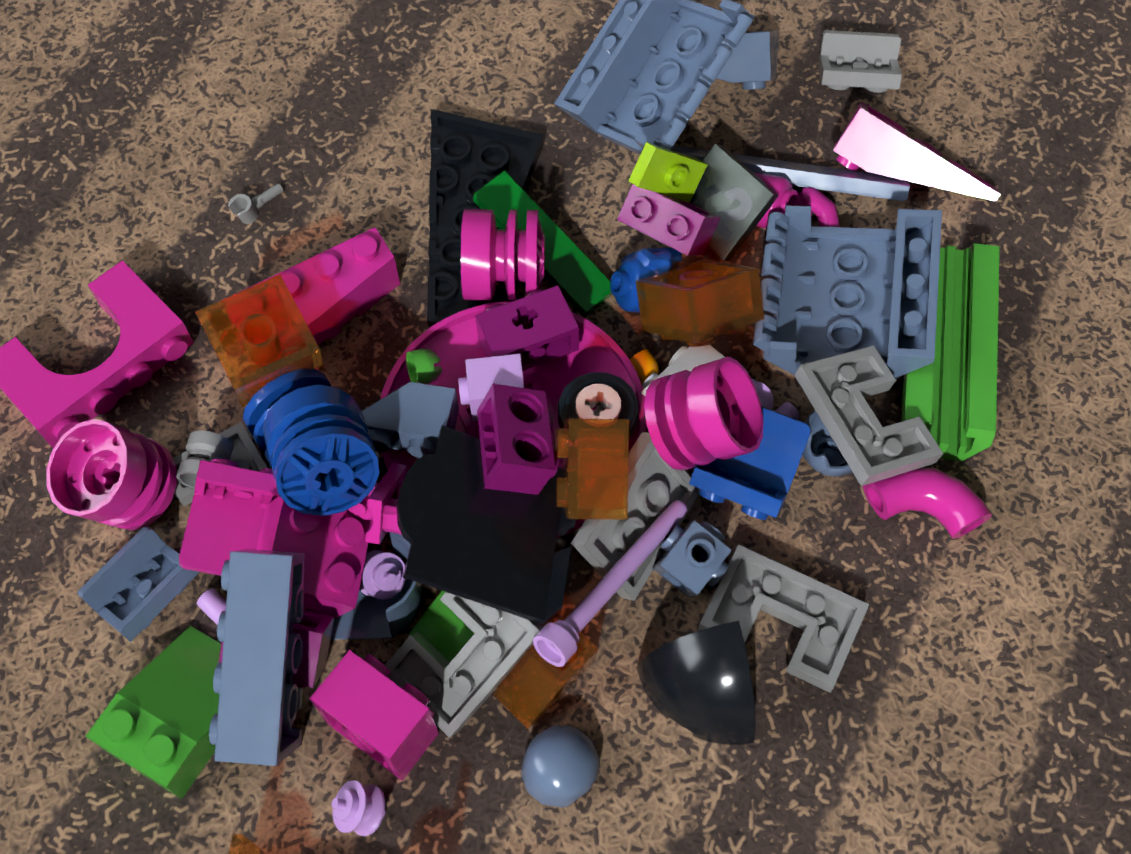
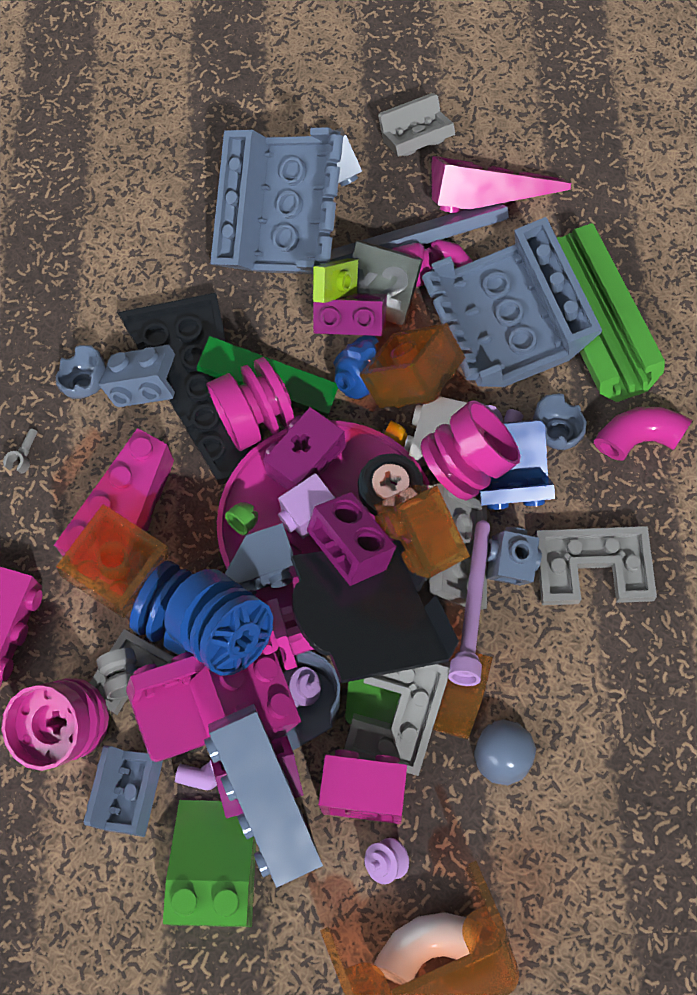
camera: 25 degrees left, 5 degrees up
(359, 153) = (81, 374): none -> sand blue hair
(409, 178) = (138, 376): none -> sand blue bracket
(704, 684) = (573, 642): black brick -> none
(838, 395) = (593, 416): light grey plate -> none

